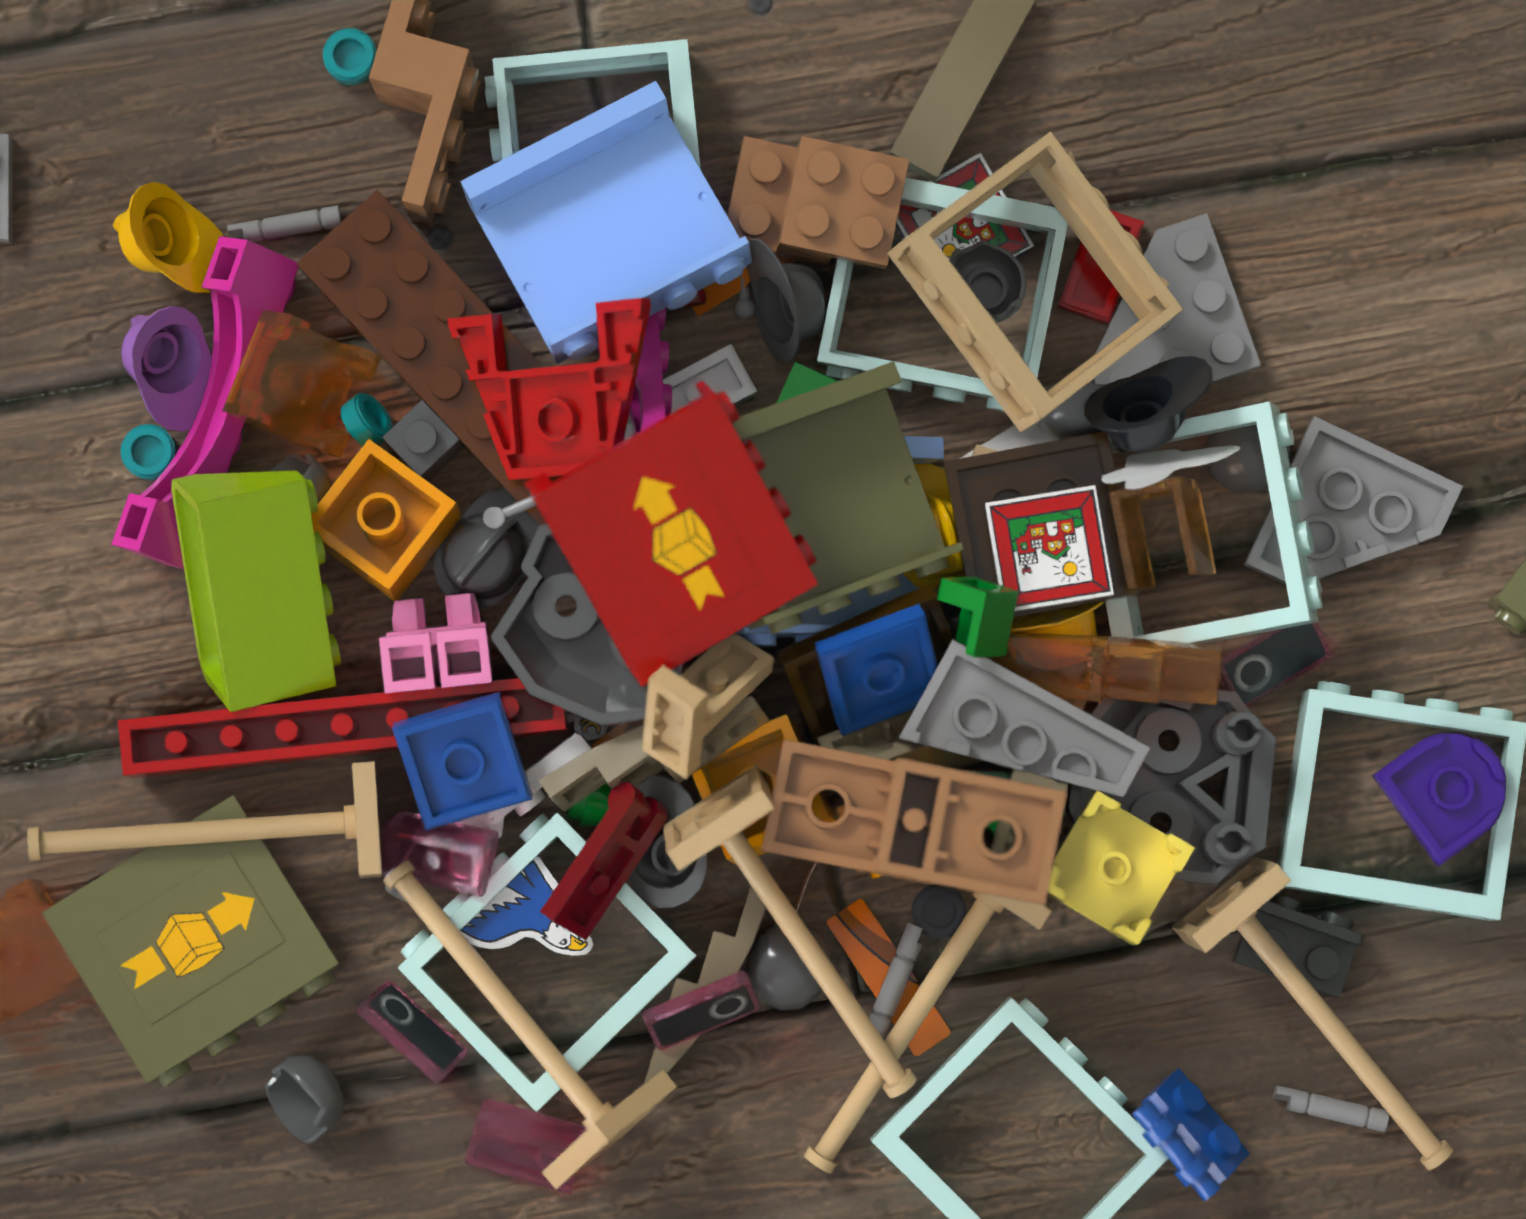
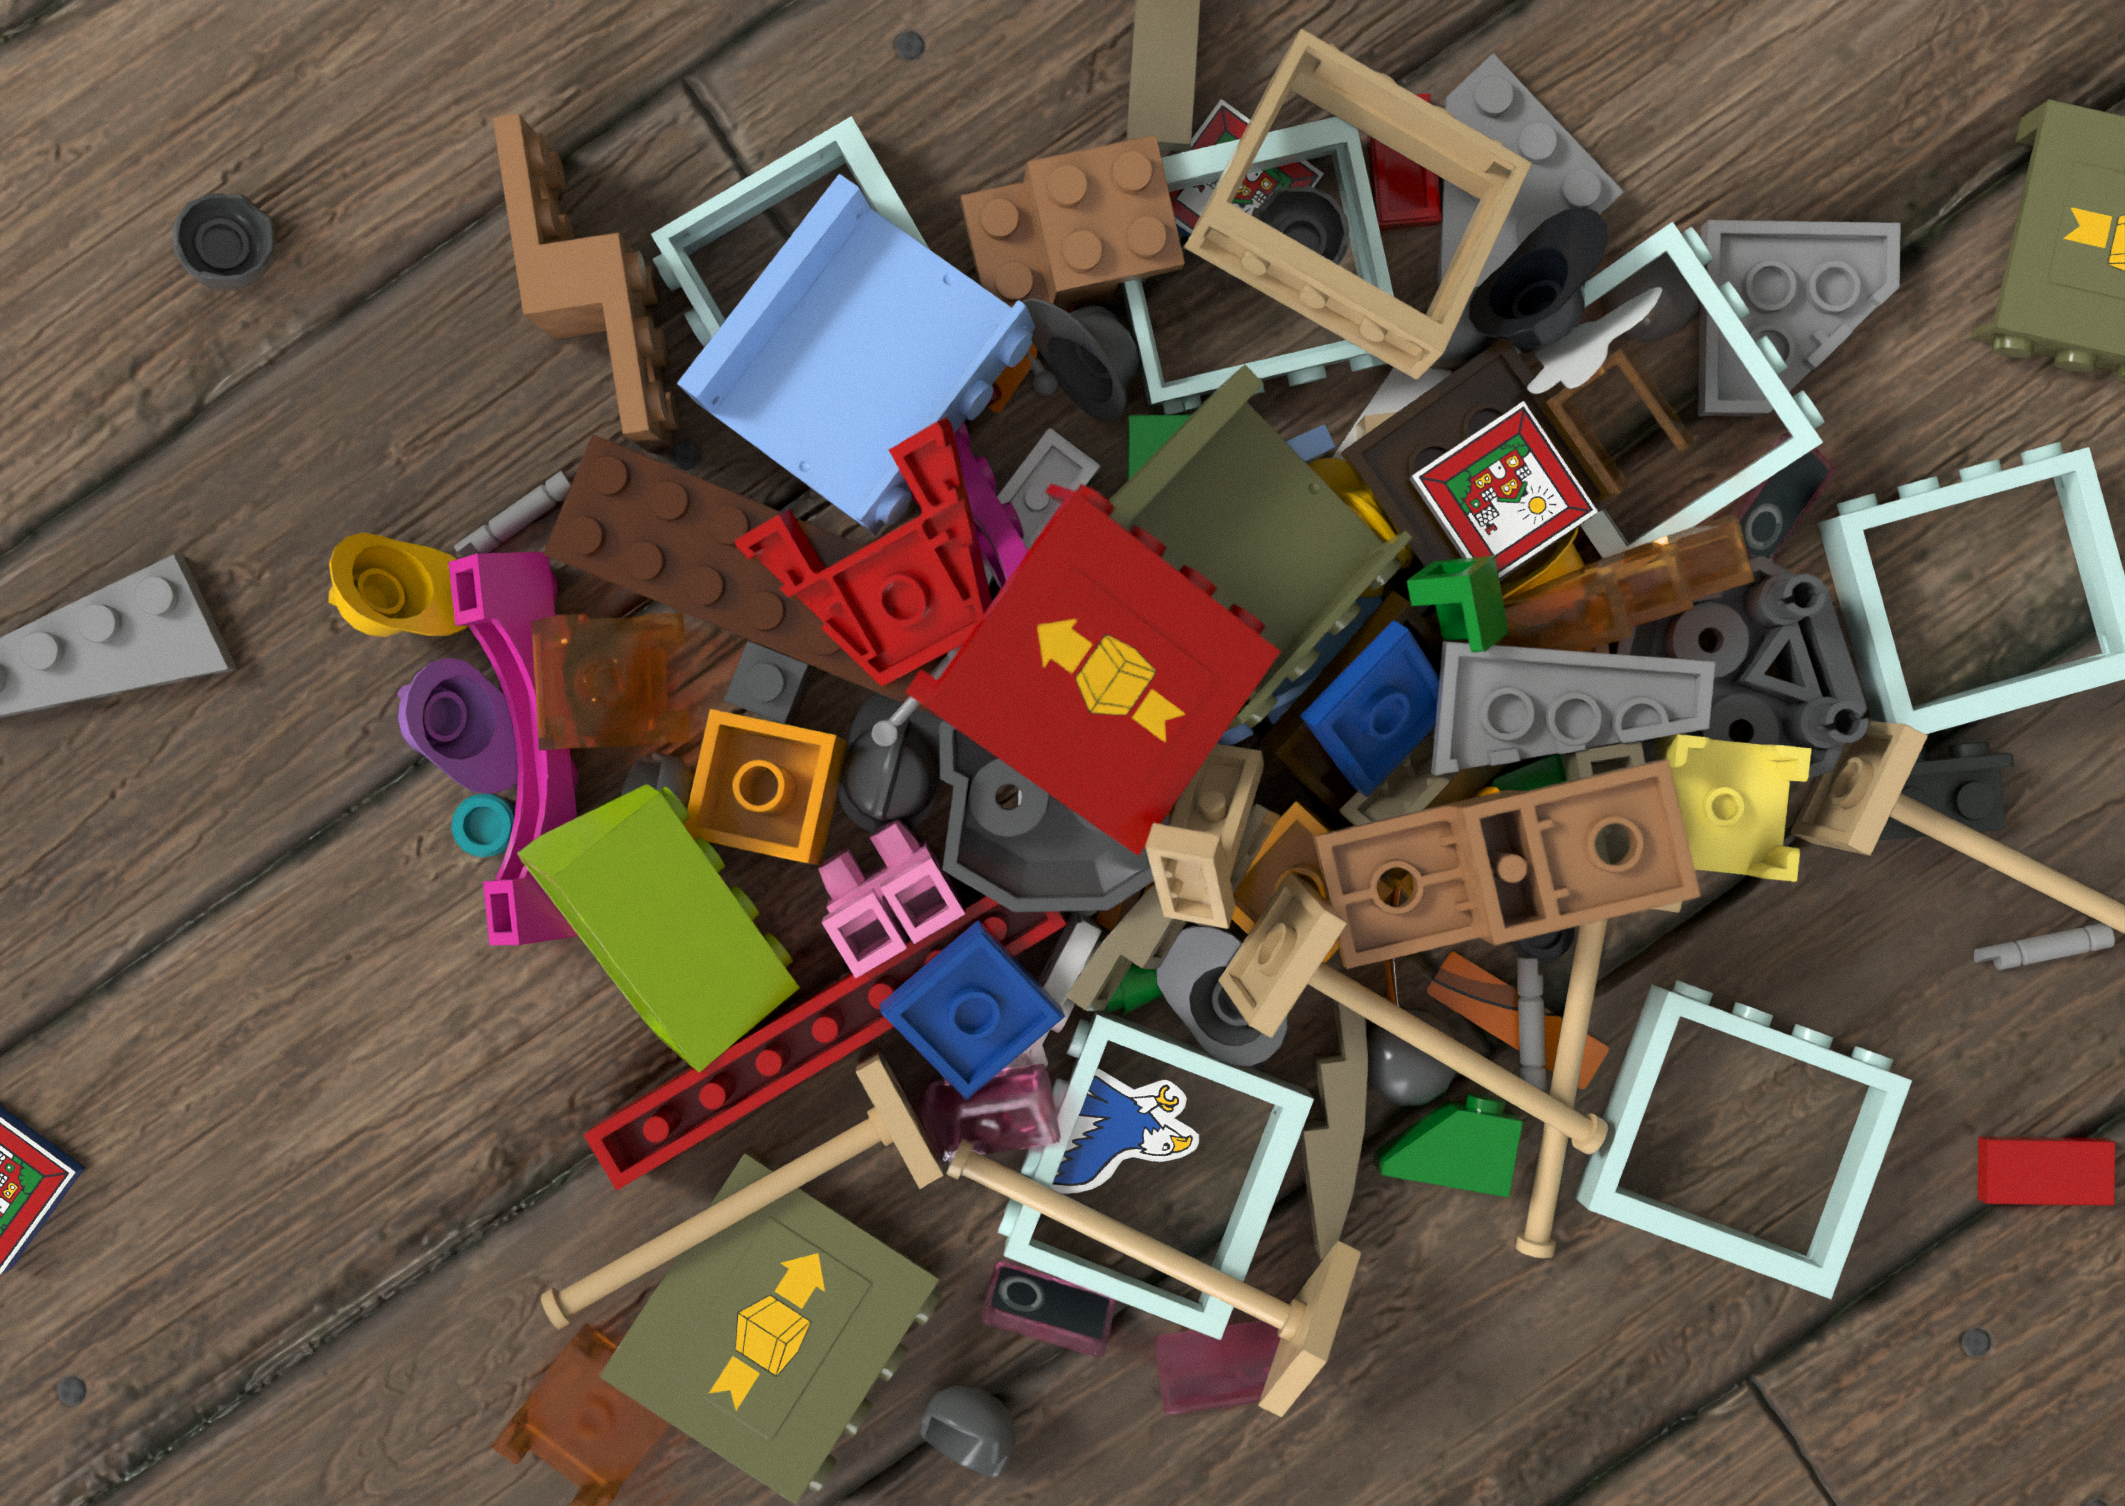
camera: 25 degrees left, 5 degrees up
(349, 56) = (496, 304): teal tile -> none
(366, 419) = (698, 686): teal tile -> none
(606, 860) = (1175, 1047): dark red plate -> none
(701, 1010) = (1345, 1155): slope -> none
(794, 1050) = (1457, 1147): none -> green slope
(1190, 1134) = (1918, 1047): blue plate -> none
(1446, 791) = (2037, 561): dark purple tile -> none

